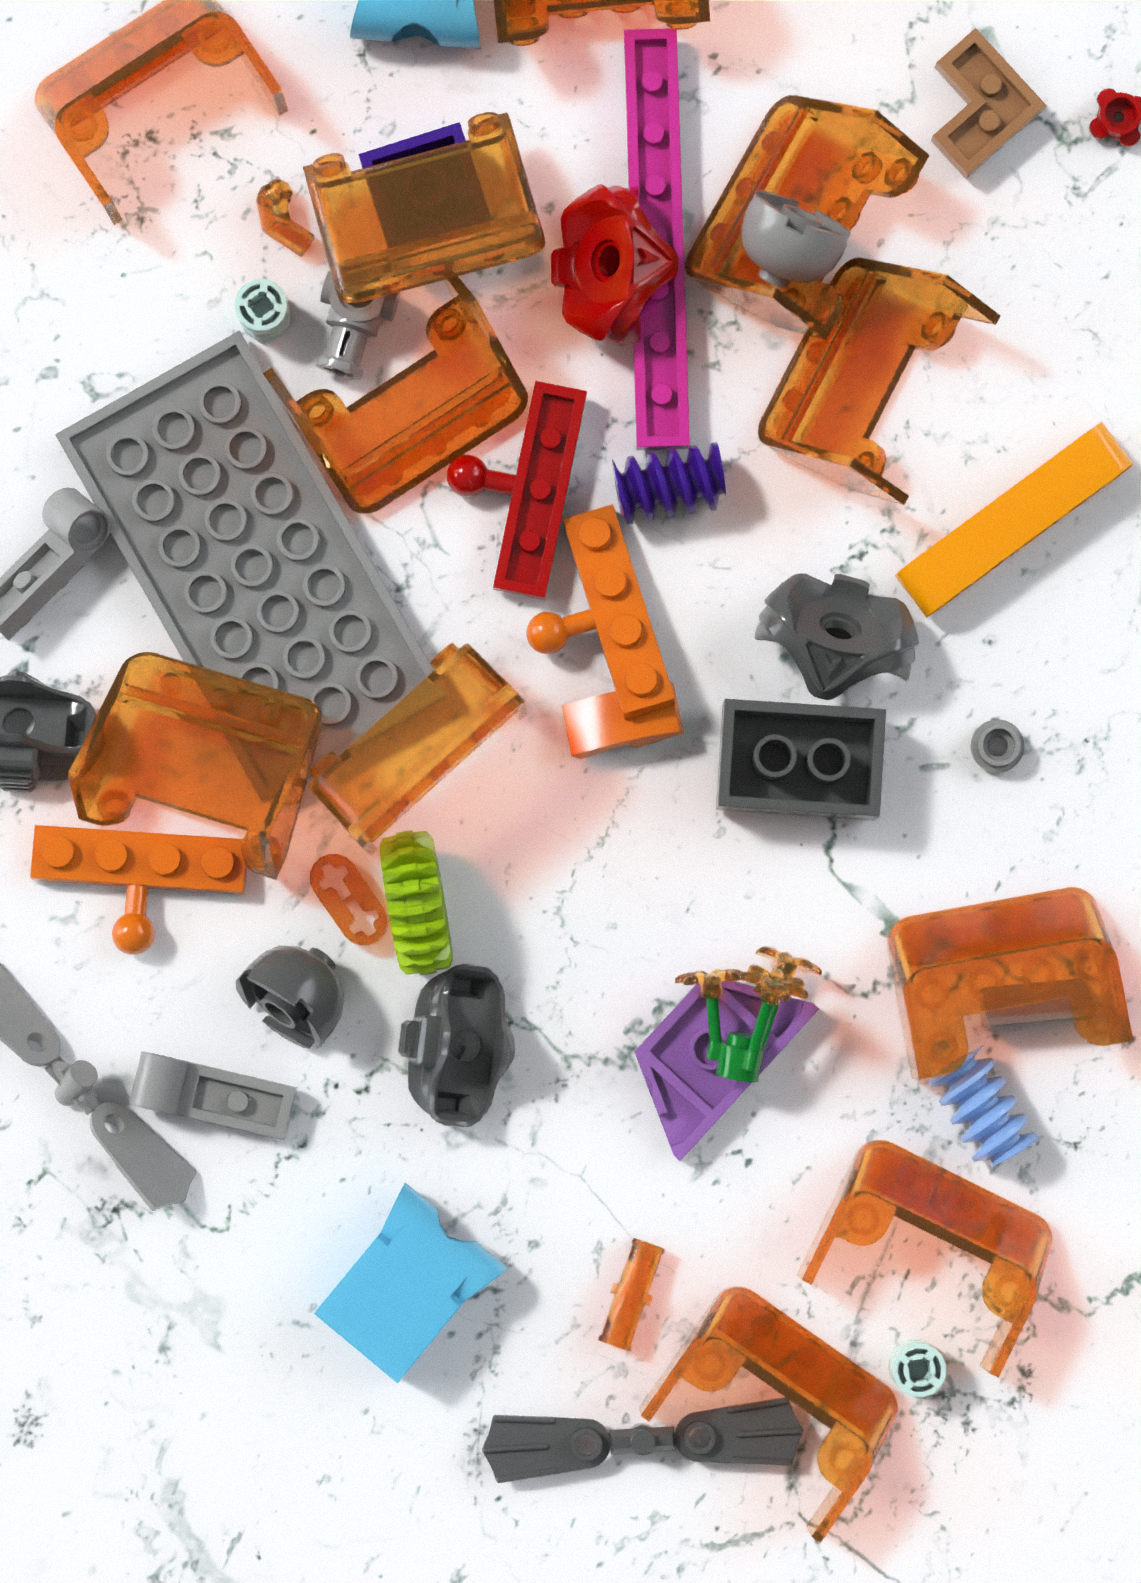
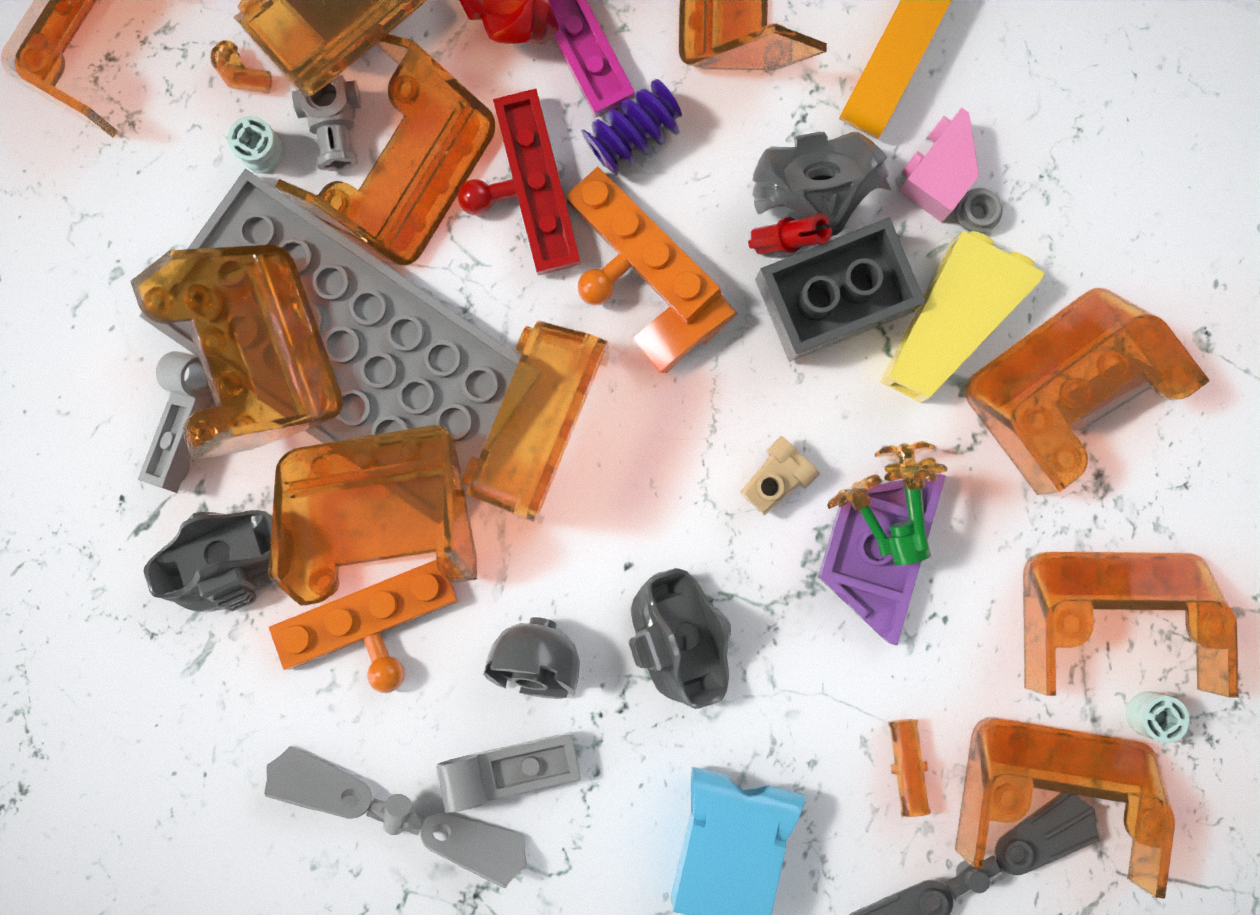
camera: 30 degrees left, 0 degrees up
(161, 527) = (252, 342): none -> clear orange windscreen
(338, 907) = (535, 576): clear orange beam -> none
(416, 902) = (595, 544): lime gear -> none
(655, 924) = (786, 468): none -> tan plate
(777, 677) = (790, 234): none -> red axle
(921, 842) = (963, 306): none -> light yellow slope
(980, 685) = (946, 171): none -> bright pink slope
(984, 1110) = (1117, 494): light blue piece -> none

